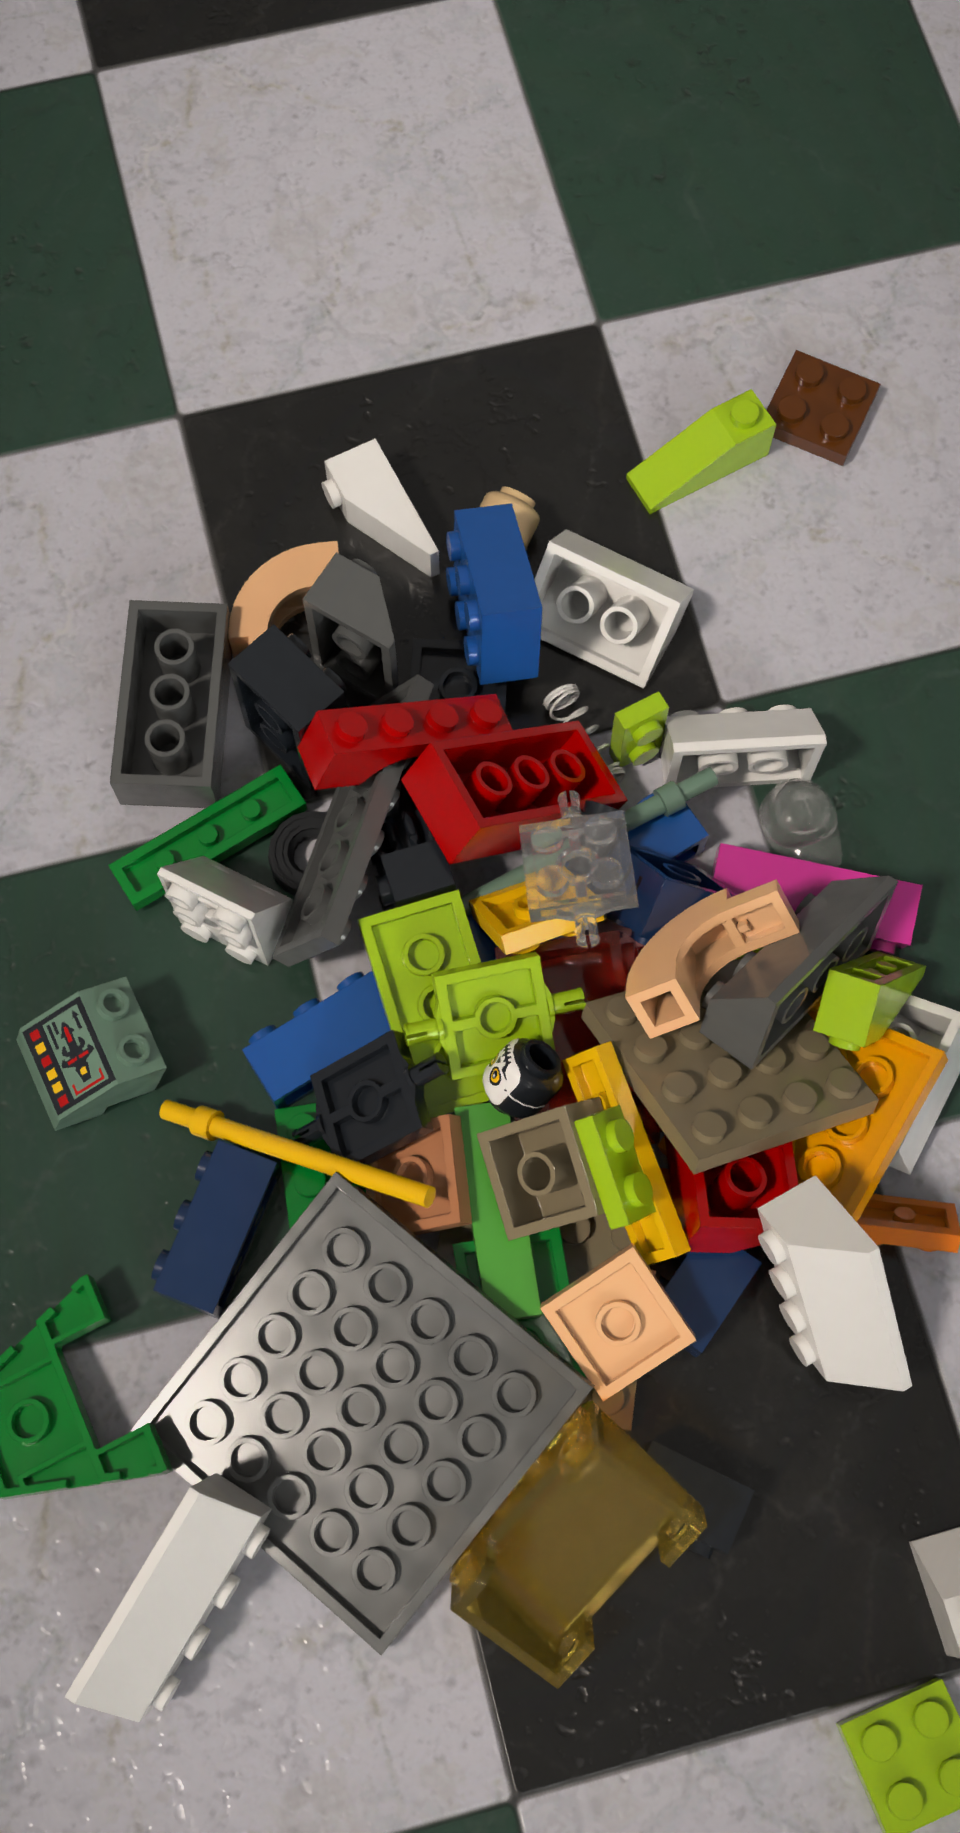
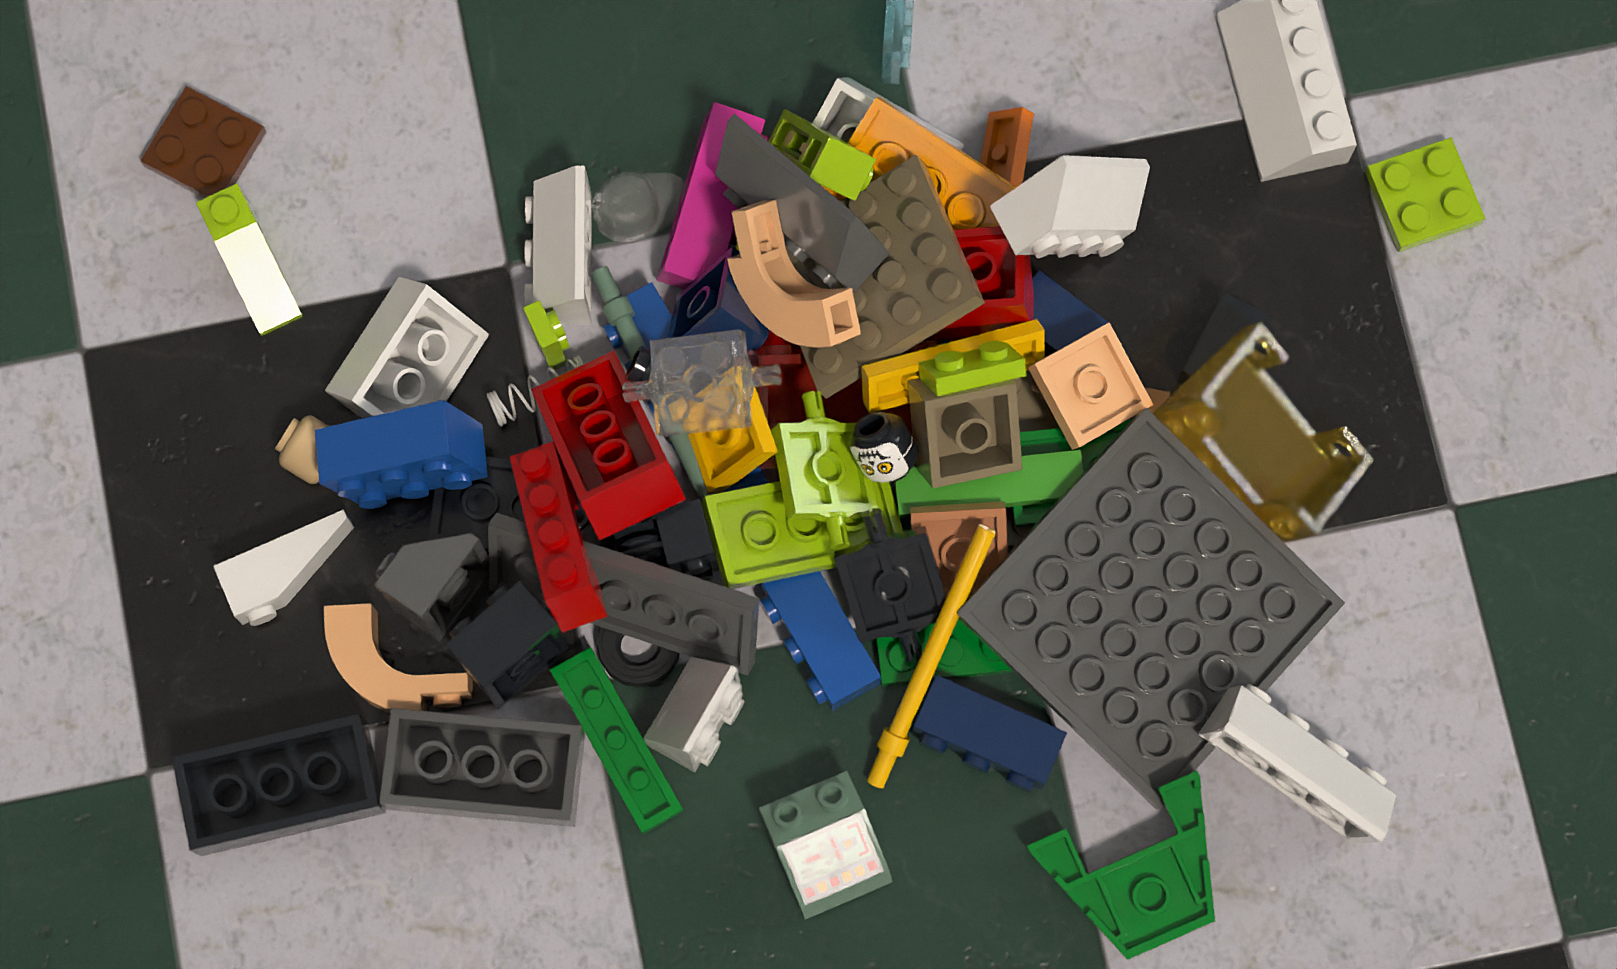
camera: 85 degrees left, 5 degrees up
(155, 512) = (278, 785): none -> black brick

